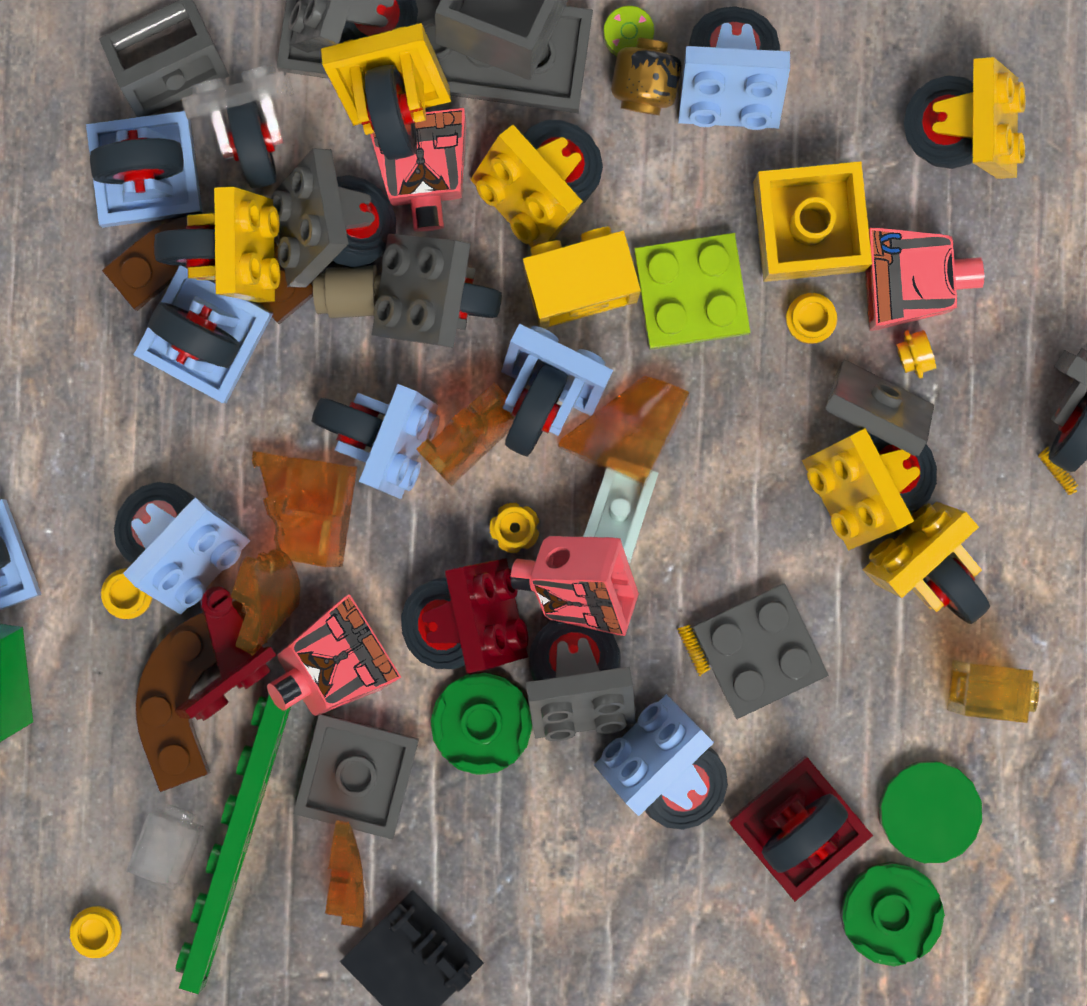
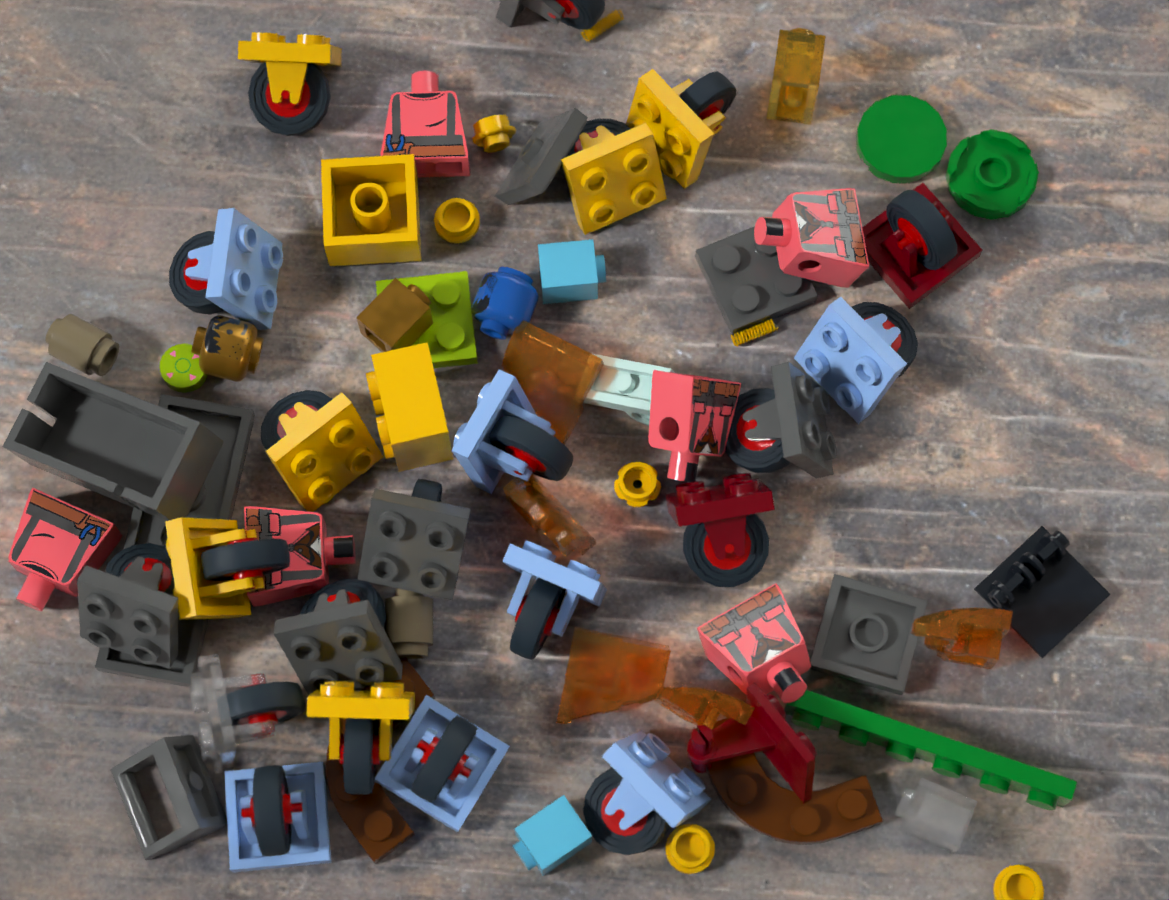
camera: 90 degrees left, 15 degrees down
(130, 450) = (551, 836): none -> medium azure brick
(481, 723) = (819, 522): green tile -> none
(680, 257) = (396, 317): none -> pearl gold brick
(711, 374) = (504, 302): none -> blue head
(752, 445) = (570, 271): none -> medium azure brick
(799, 717) = (817, 236): none -> coral torso

